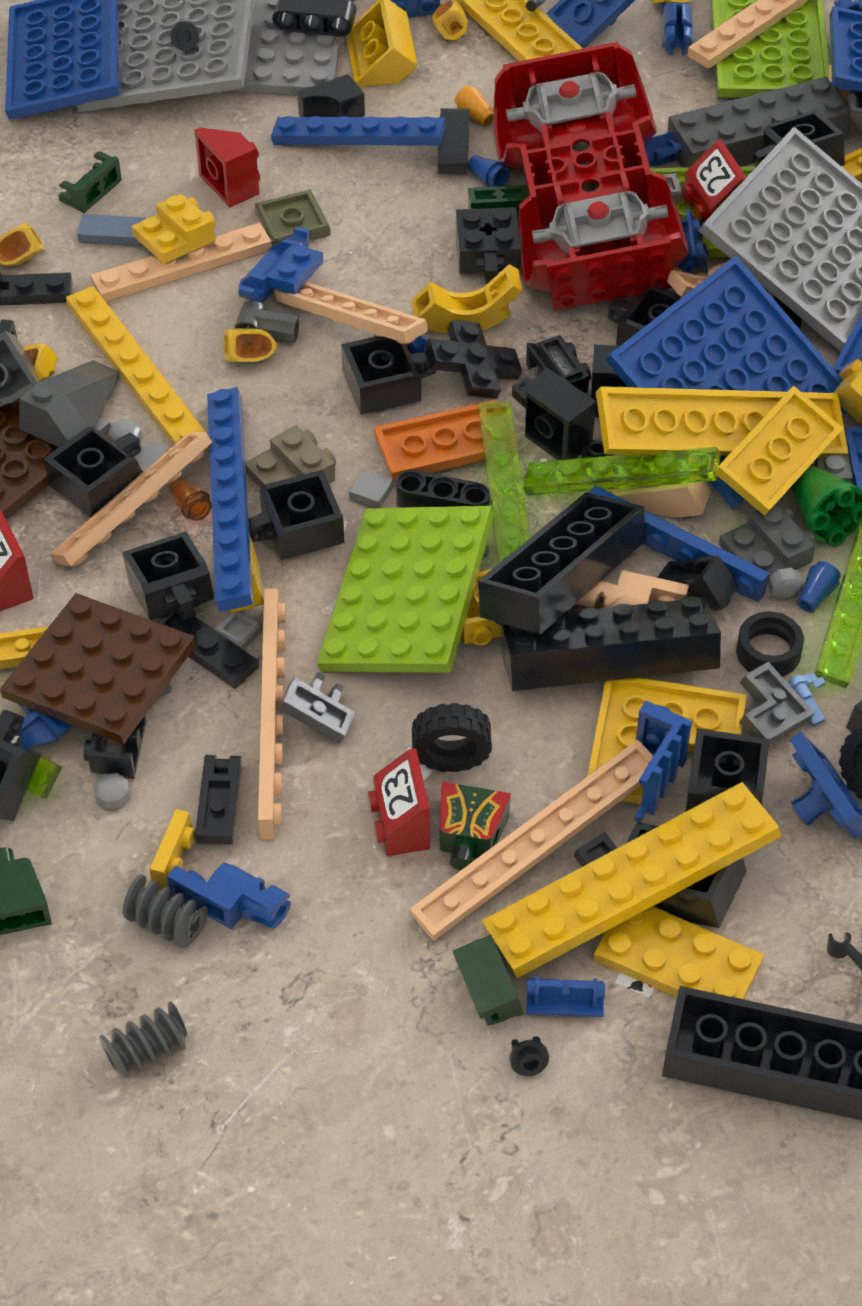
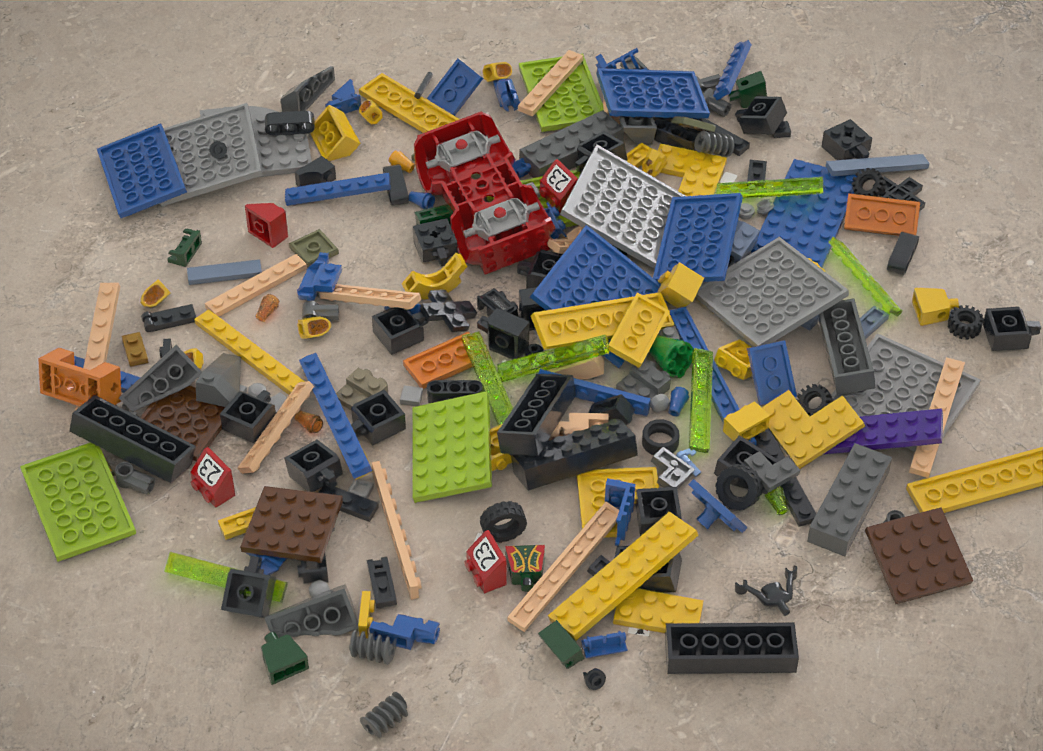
camera: 15 degrees left, 5 degrees down
(100, 834) = (319, 615): none -> dark grey wedge
(176, 228) = (248, 266): yellow plate -> none
(187, 298) = (267, 307): none -> clear orange cone
(316, 709) = (422, 522): hinge -> none

